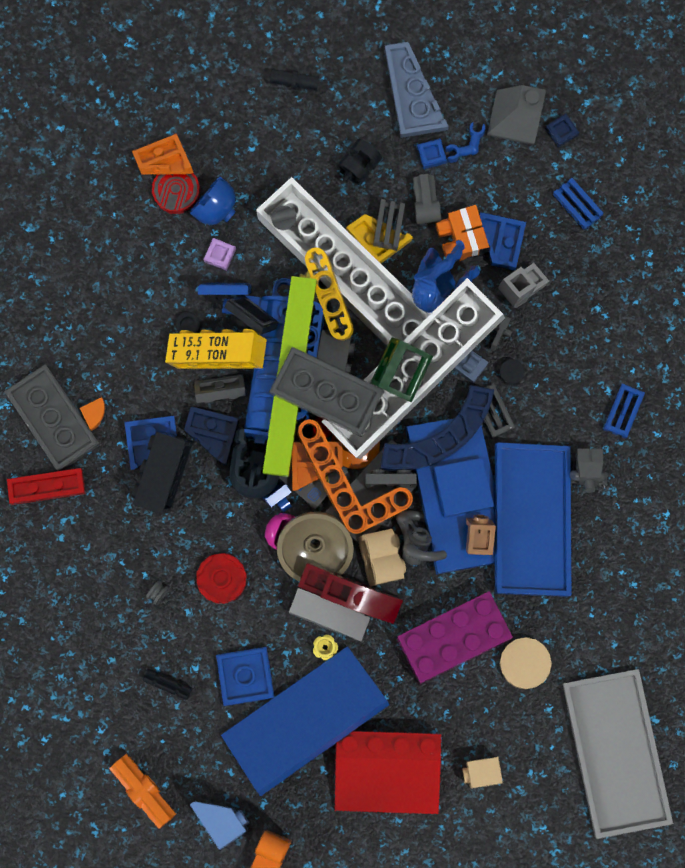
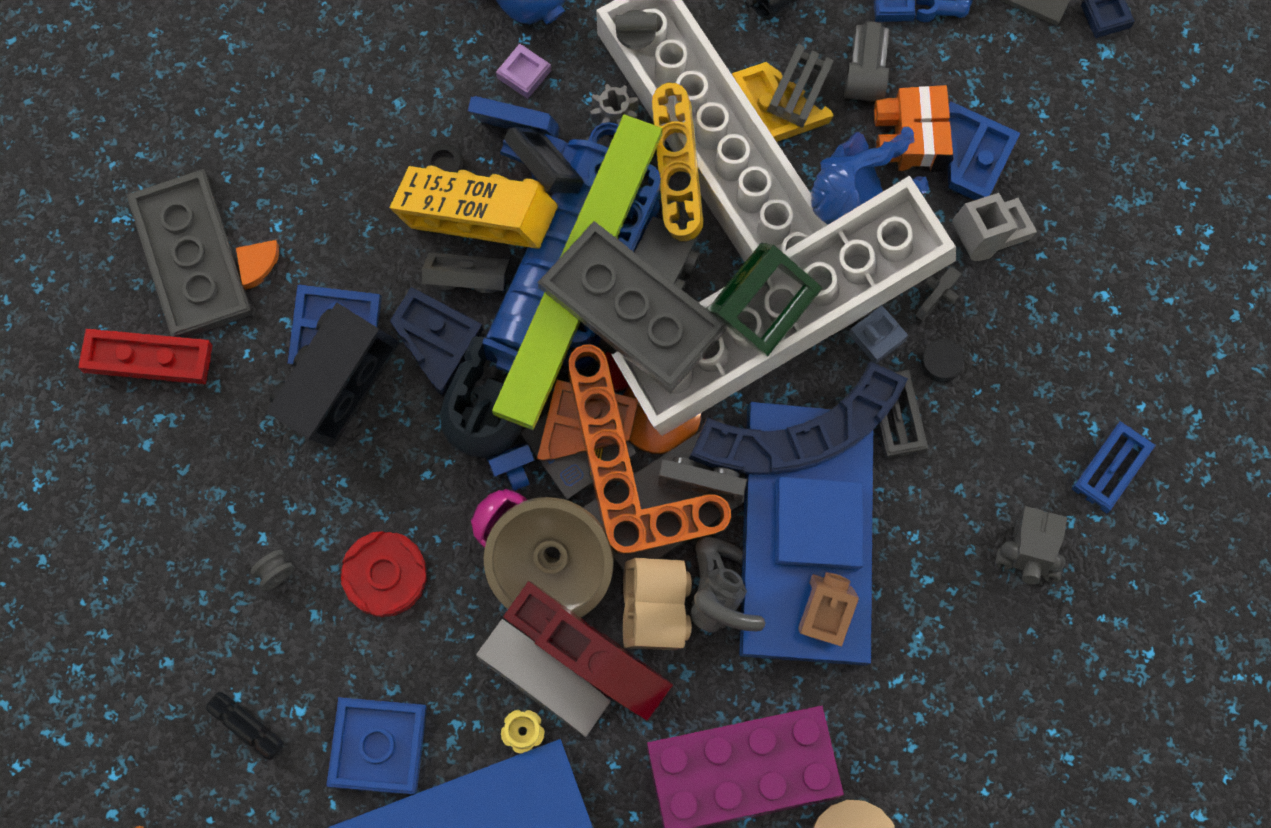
camera: 10 degrees right, 5 degrees down
(284, 261) = (613, 98): none -> light grey gear
(532, 520) = (922, 608): blue tile -> none
(584, 197) = (1130, 135): blue tile -> none

